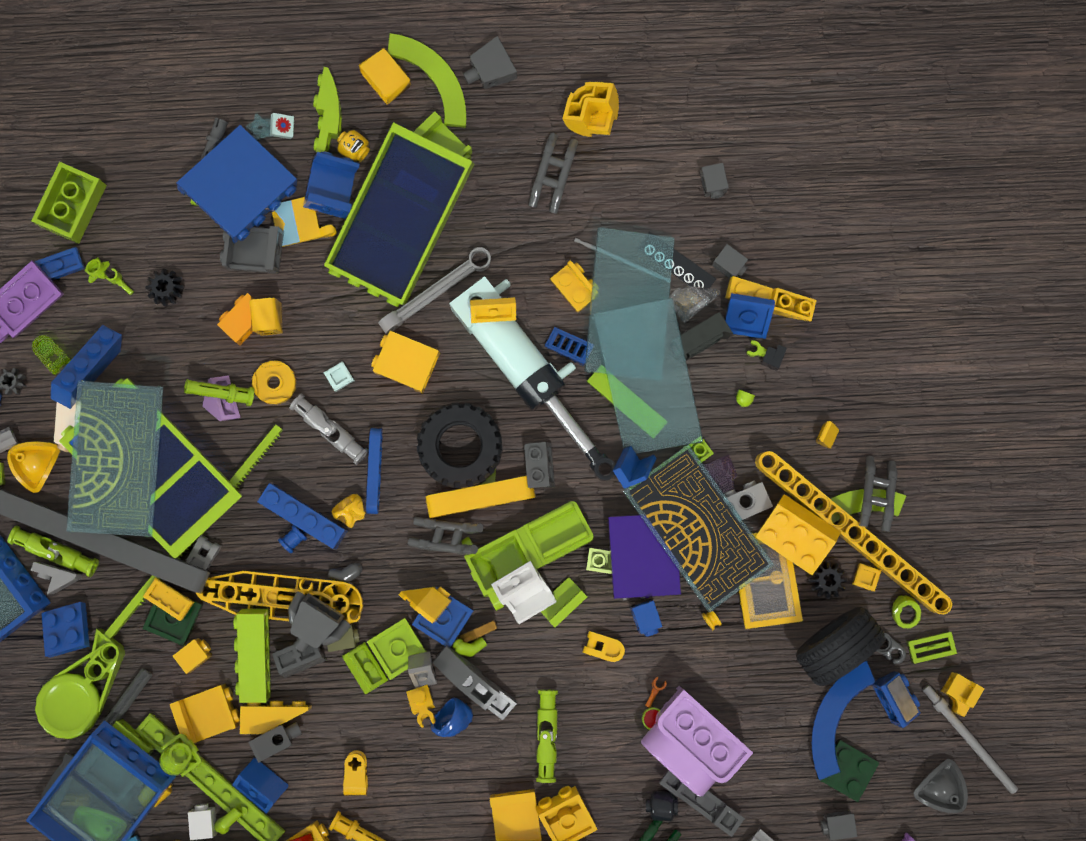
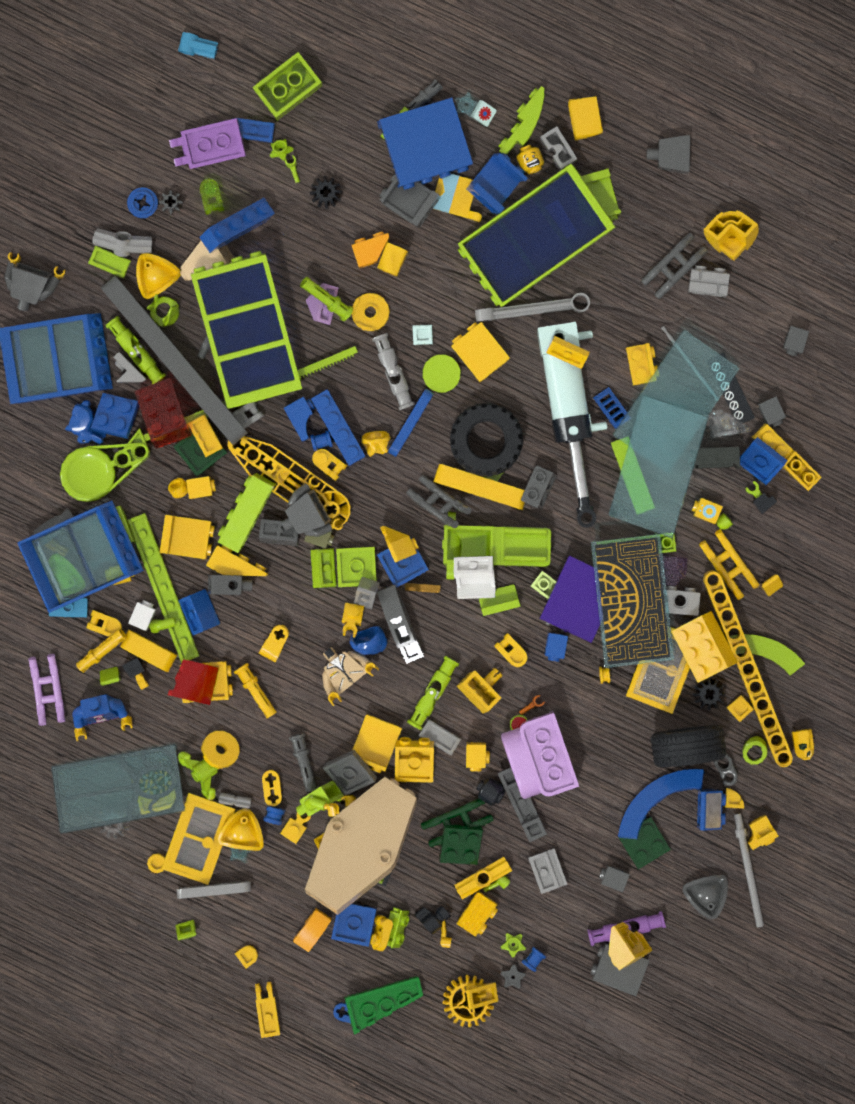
camera: 30 degrees right, 5 degrees up
(33, 656) = (81, 423): none -> blue animal
(49, 497) = (172, 315): none -> lime piece
(111, 600) = (163, 413): none -> clear red brick
(114, 459) = (224, 310): clear light blue piece -> none
(128, 696) = (136, 491): dark grey axle -> none
(170, 669) = (178, 488): none -> yellow tile
(177, 757) = (151, 557): lime piece -> none
(256, 525) = (299, 414): none -> blue arch
(305, 557) = (323, 458): none -> yellow plate
(347, 574) = (347, 490): dark grey arm -> none
(368, 114) = (556, 142): none -> light grey brick
(379, 404) = (441, 373): none -> lime tile
(438, 71) = (628, 135): lime tile -> none
(442, 765) = (344, 671): none -> tan torso
(469, 649) = (410, 597): lime arm -> none
(580, 776) = (442, 738): none -> light grey tile
(593, 706) = (480, 690): none -> yellow brick
(596, 169) = (708, 282): none -> light grey brick
(627, 777) = (476, 756): none -> yellow brick
(631, 469) = (606, 528): blue panel -> none
(721, 396) = (706, 510): none -> yellow brick
(786, 433) = (730, 552): none -> yellow piece
(869, 500) = (773, 650): dark grey piece -> none
(912, 651) = (743, 782): lime tile -> none
(913, 674) = (733, 799): none -> yellow tile
(950, 577) = (803, 743): none -> yellow rock

